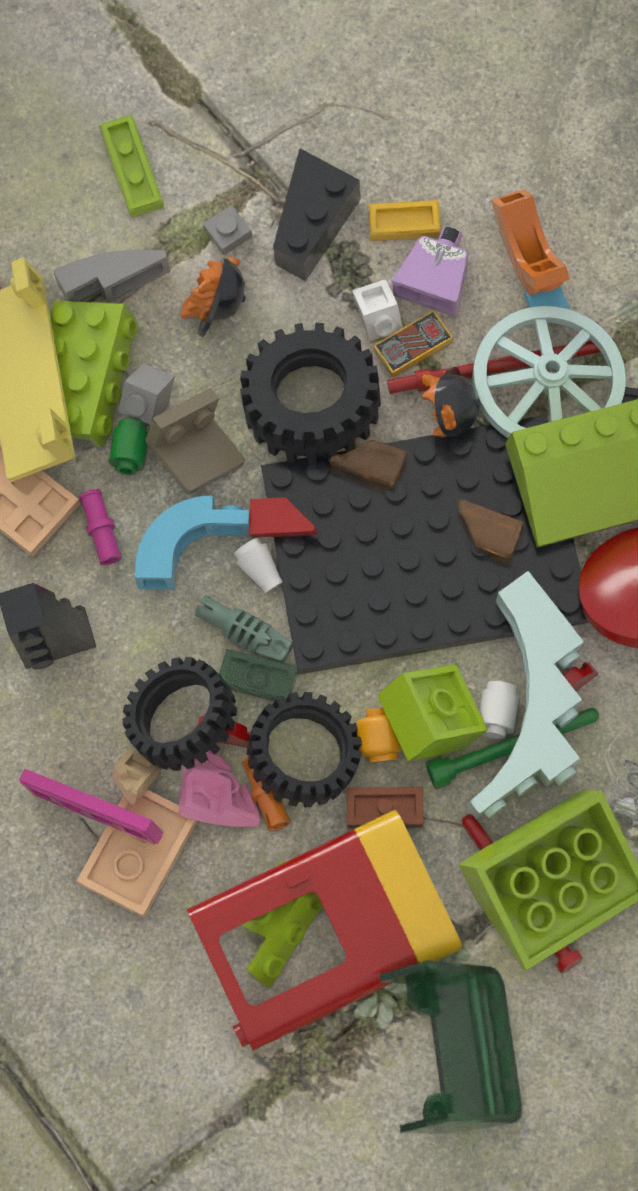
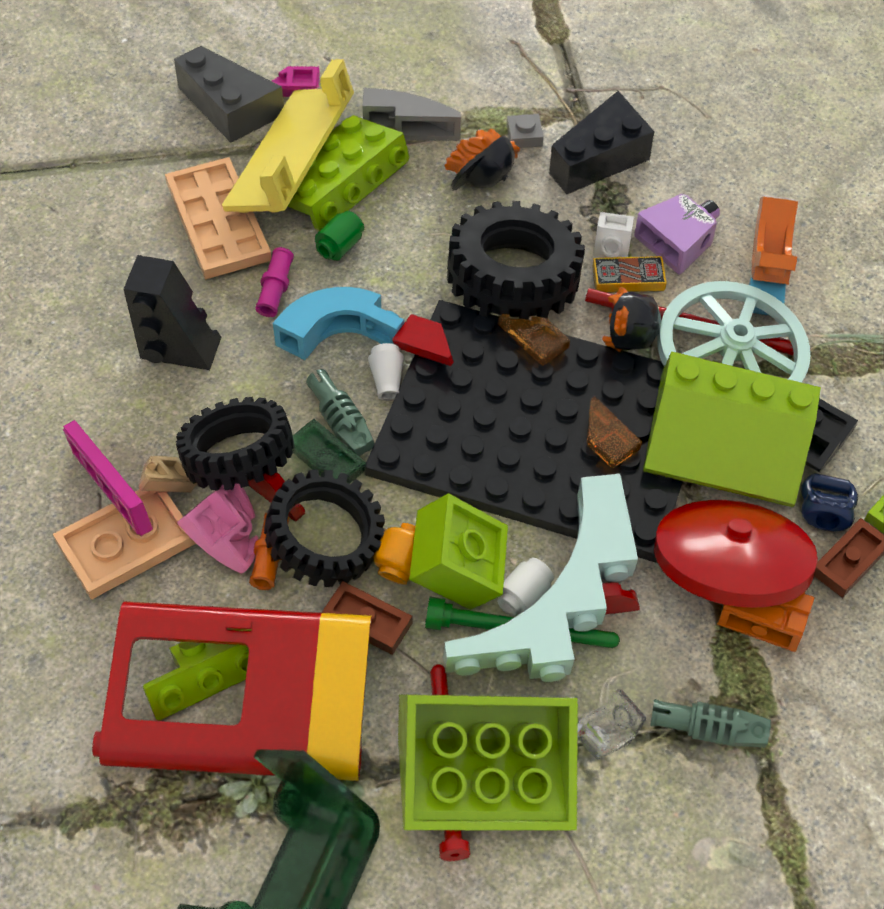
camera: 20 degrees right, 15 degrees down
(131, 166) = (477, 59): lime tile -> none
(146, 393) = (378, 203): light grey brick -> none
(193, 443) = (391, 251): dark tan bracket -> none
(404, 220) = (668, 182): yellow tile -> none

